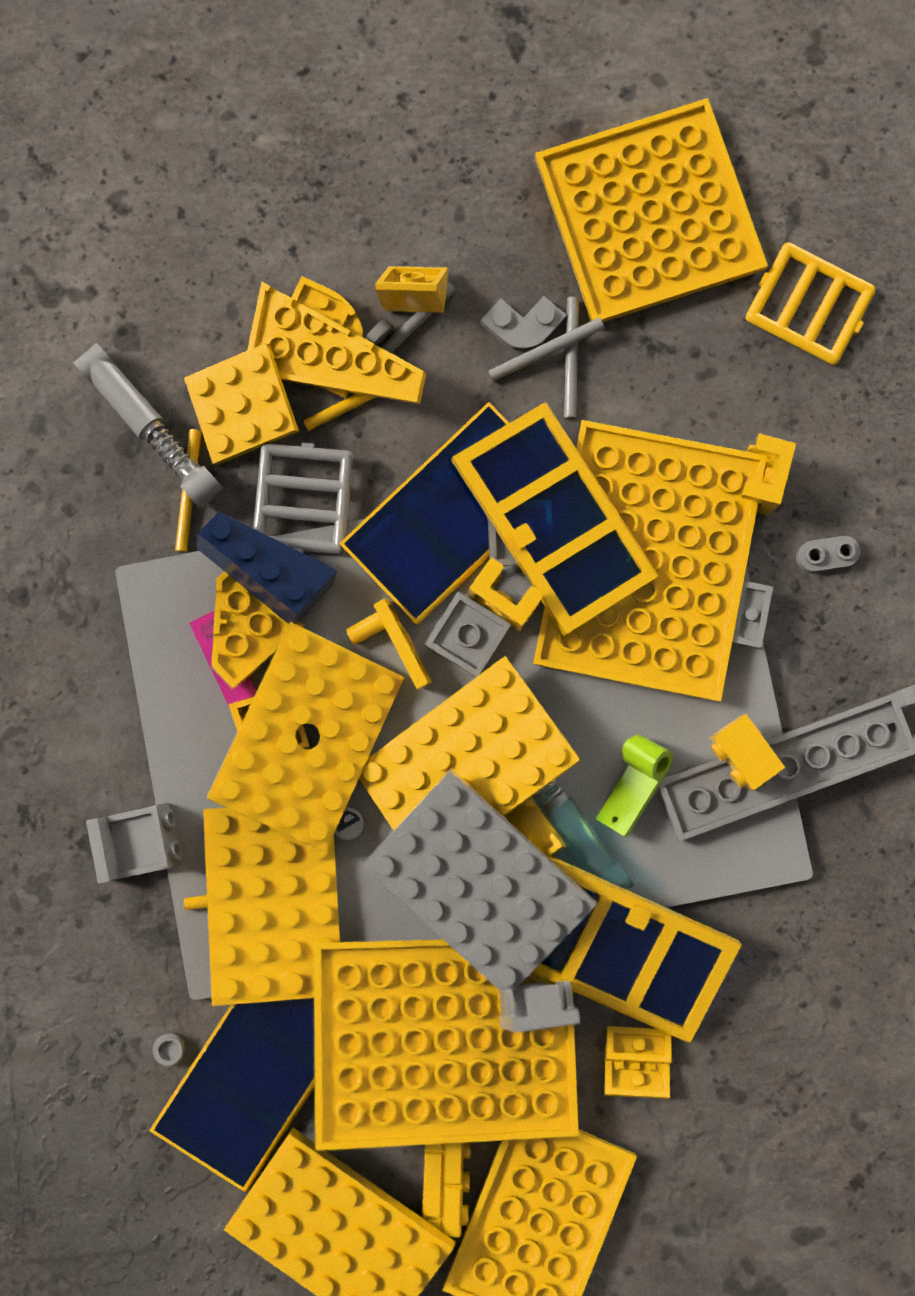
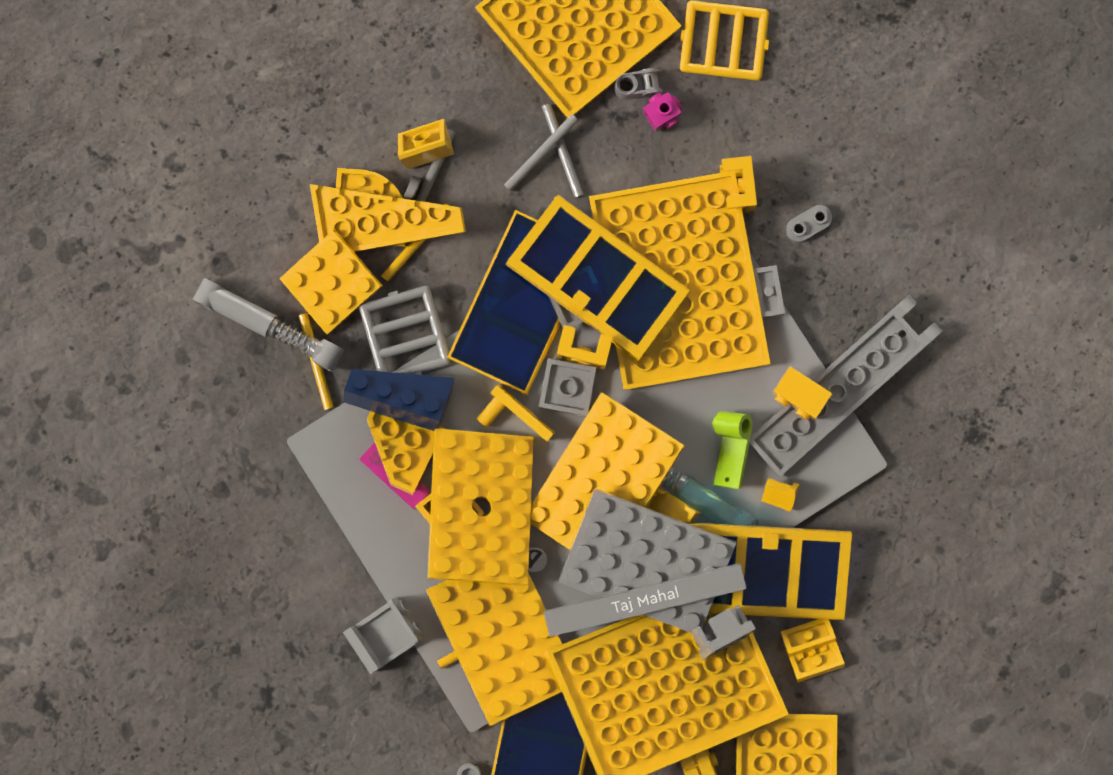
camera: 25 degrees left, 0 degrees up
(458, 930) = (645, 599): none -> light grey tile
(522, 332) = (518, 145): light grey plate -> none
(672, 862) = (780, 494): none -> yellow tile
(697, 314) = (640, 84): none -> light grey piece
(707, 355) = (658, 118): none -> dark pink brick

